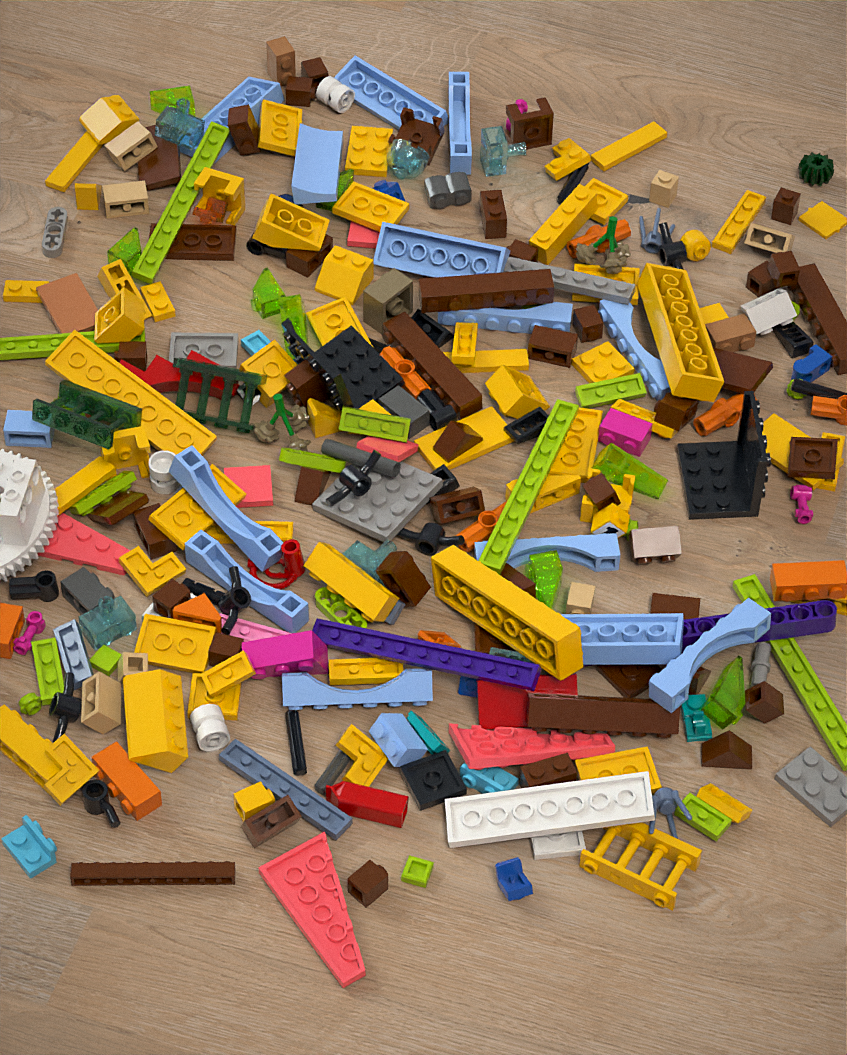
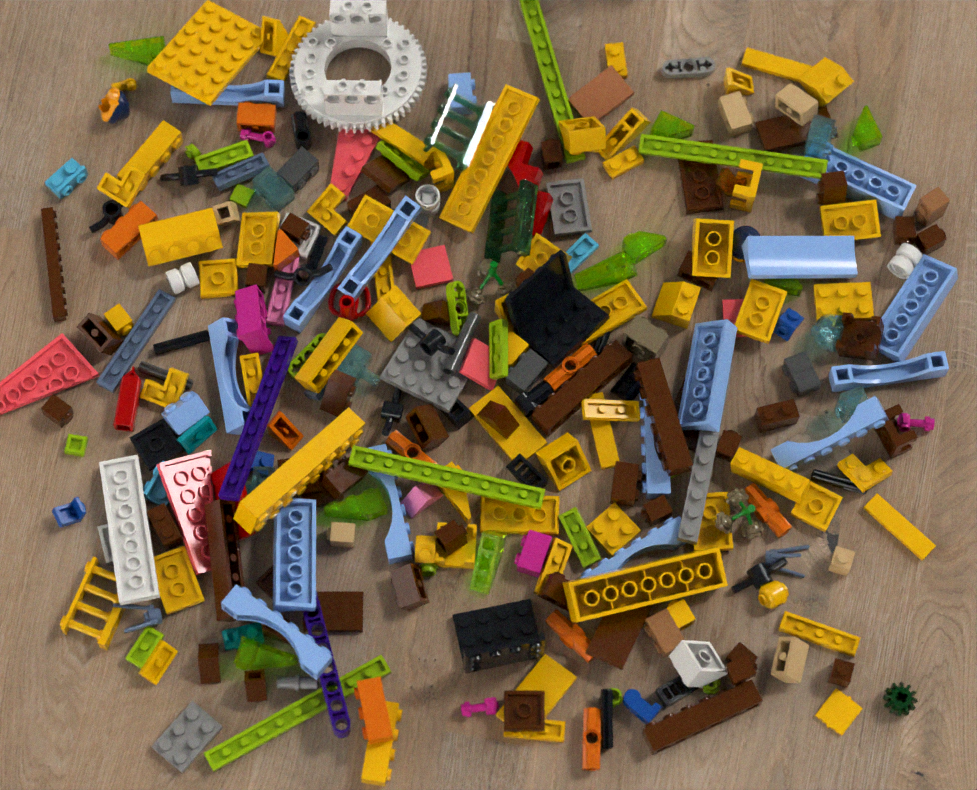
camera: 80 degrees right, 20 degrees up
(101, 703) = (193, 197): tan brick -> none
(228, 674) = (227, 280): yellow plate -> none
(305, 518) = (393, 313): none -> yellow slope
(518, 128) = (865, 417): none -> light blue arch
(543, 524) = (420, 498): none -> bright pink slope

